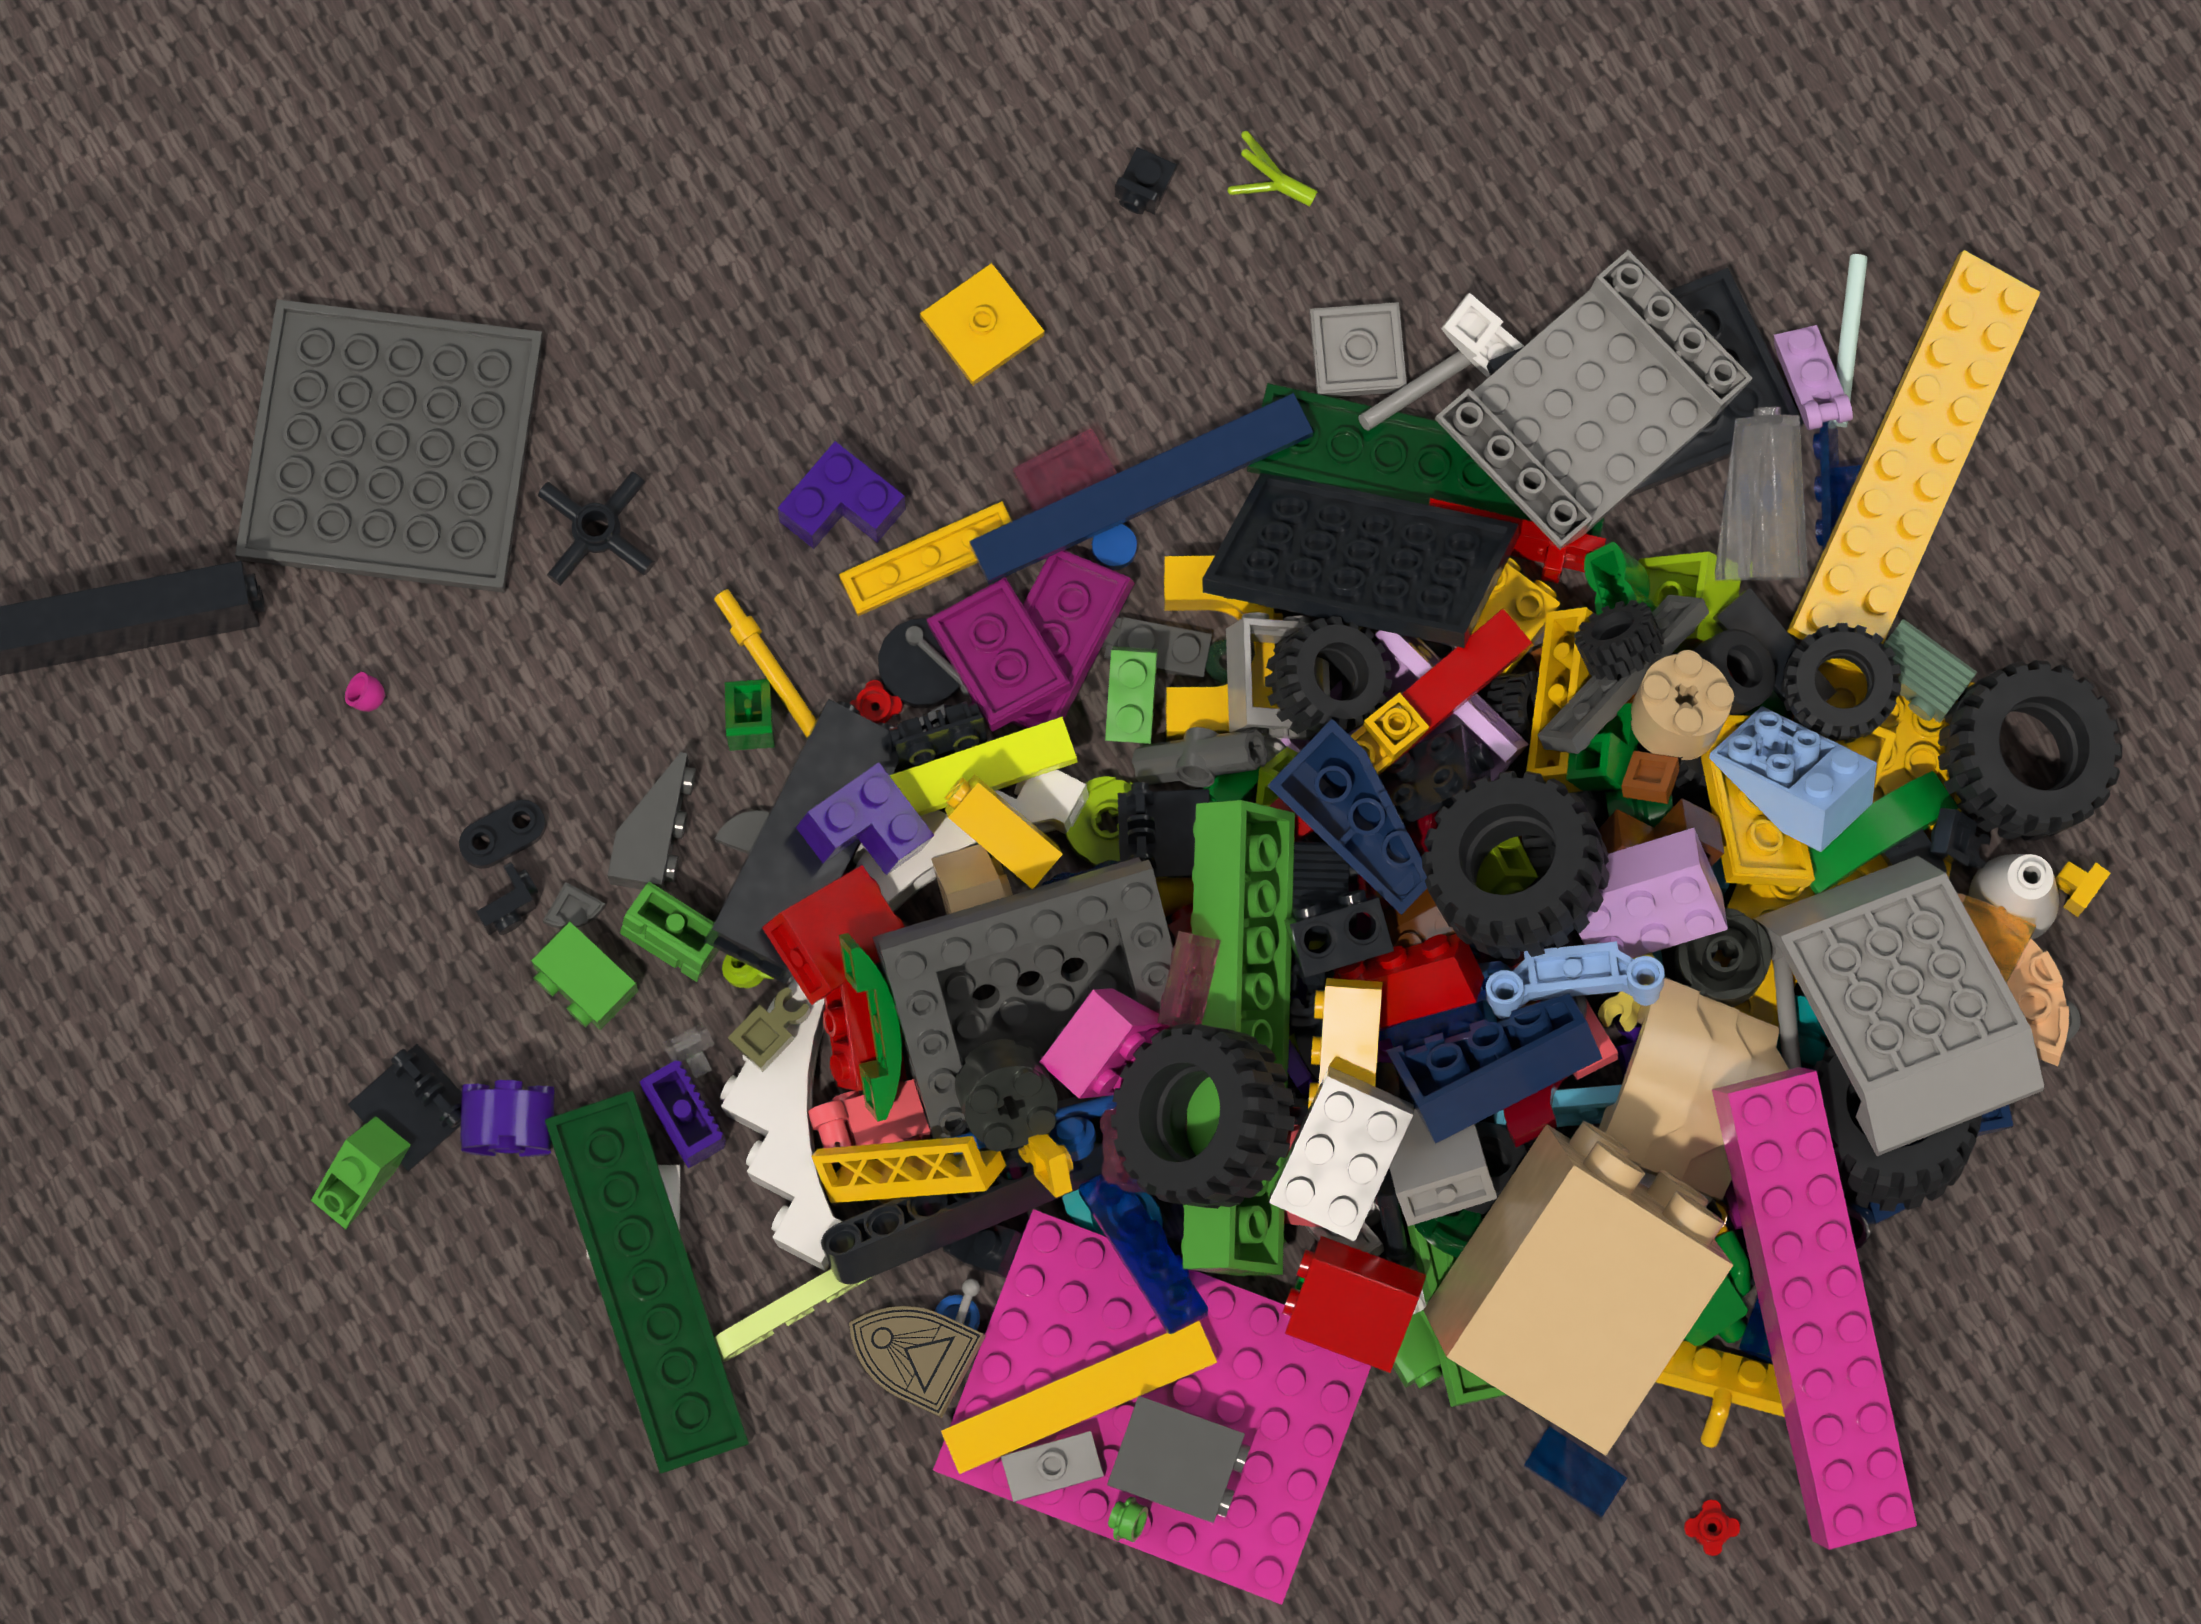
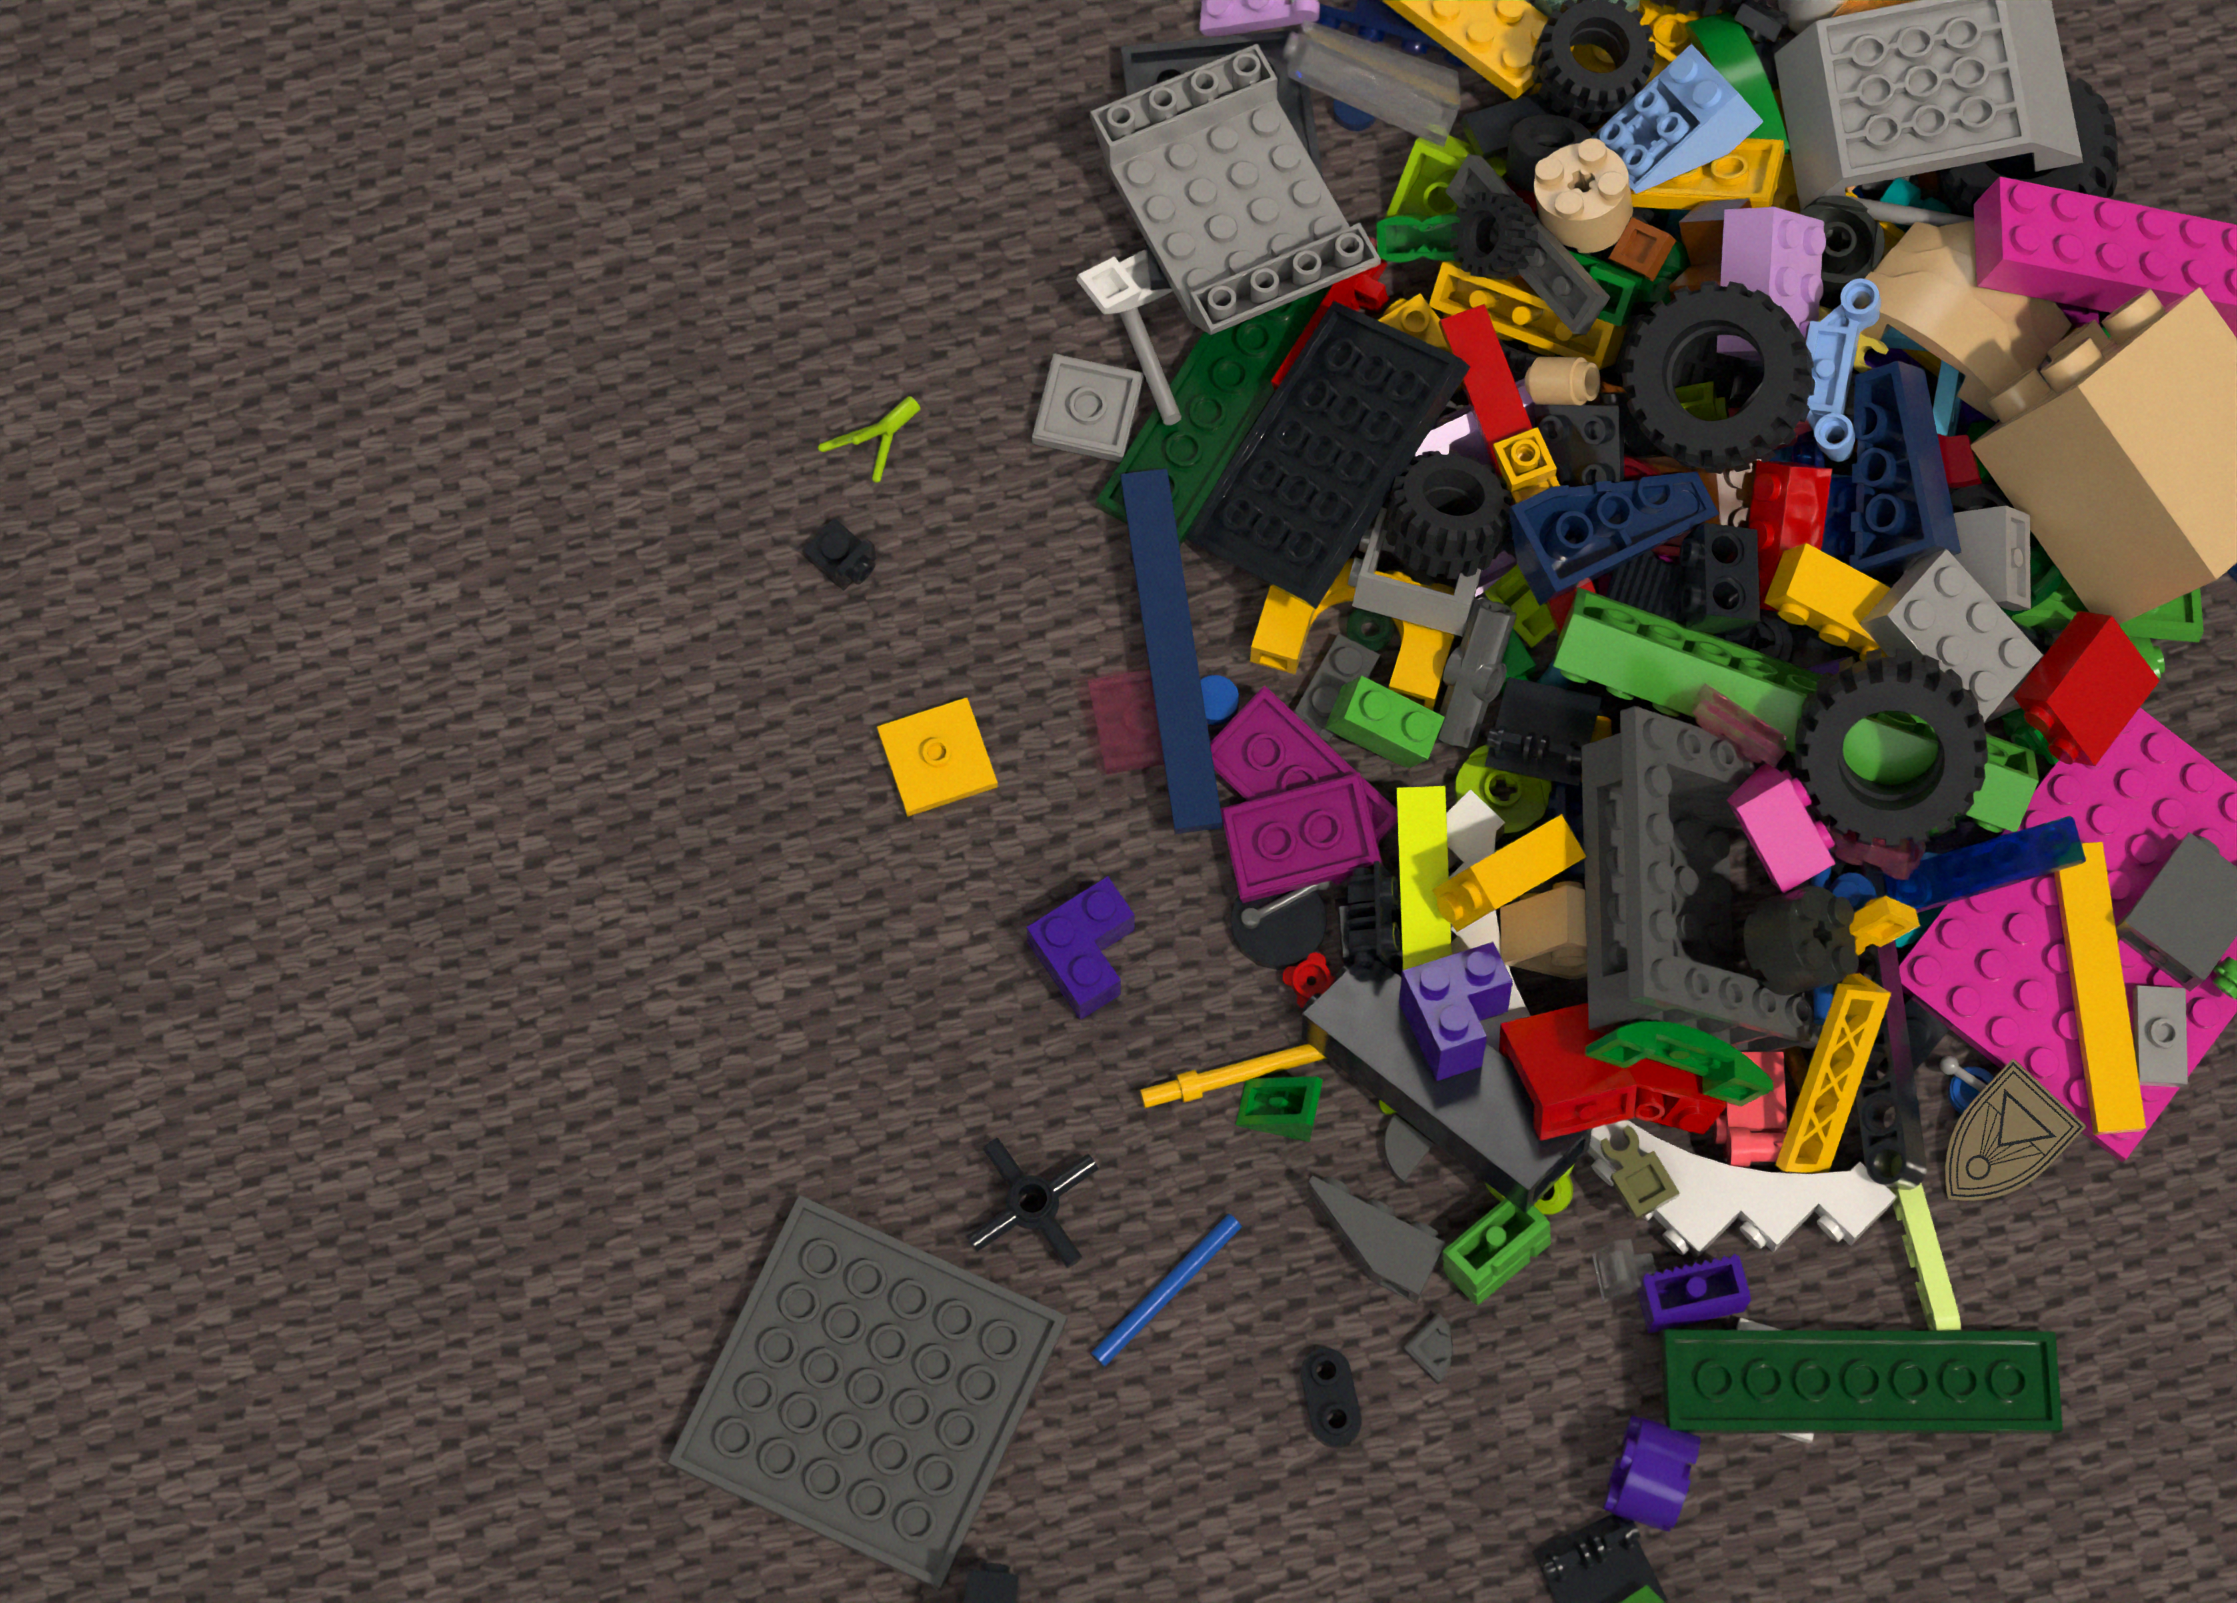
camera: 70 degrees left, 5 degrees down
(364, 692) = (1134, 1496): dark pink hinge -> none
(506, 912) = (1422, 1416): black bracket -> none
(556, 667) = (1166, 1290): none -> blue bar
(583, 977) = (1515, 1355): bright green brick -> none
(919, 561) = (1169, 887): yellow tile -> none
(1483, 736) = (1562, 381): none -> tan brick

